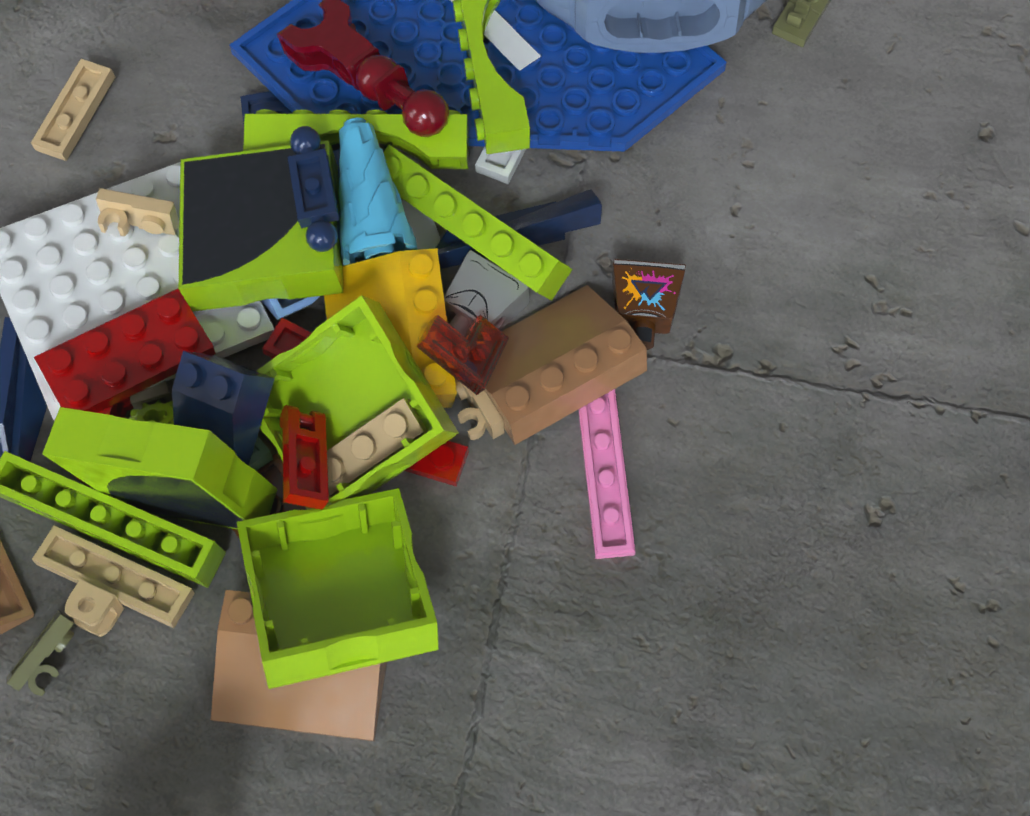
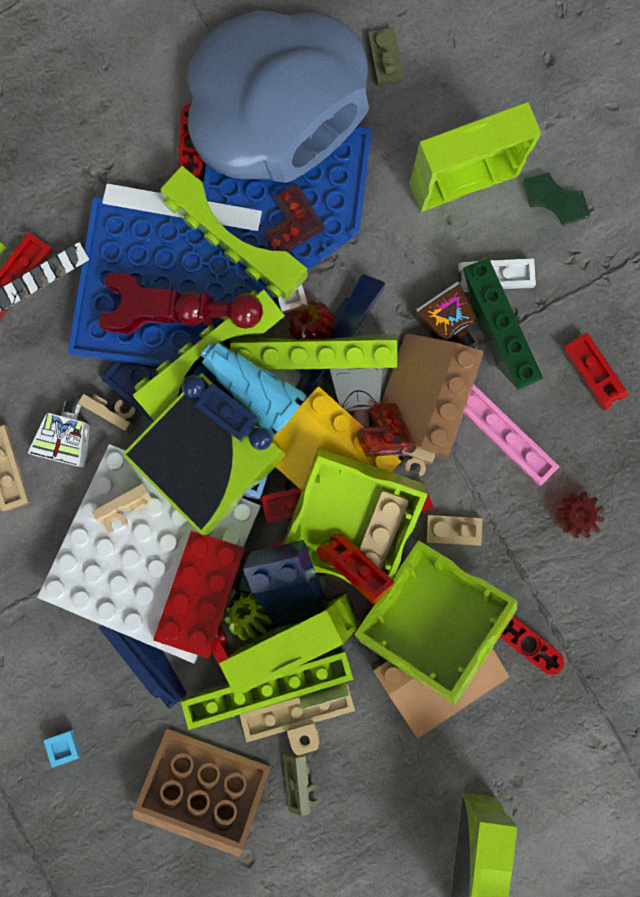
camera: 45 degrees left, 15 degrees up
(152, 122) = (63, 437): none -> torso
(155, 572) = (324, 695): none -> sticker
(213, 119) = (98, 406): none -> tan plate
(410, 691) = (548, 650): none -> red beam
(456, 526) = (454, 530): none -> tan plate
(496, 192) = (312, 321): none -> clear red gear
(566, 94) = (300, 221): none -> clear red tile
(626, 619) = (573, 506): none -> clear red gear
(692, 337) = (500, 325): none -> dark green slope
(739, 298) = (511, 273): none -> white plate
(765, 480) = (595, 371): none -> red plate
(801, 142) = (473, 156): none -> lime tile
(881, 285) = (546, 193): none -> clear green tile

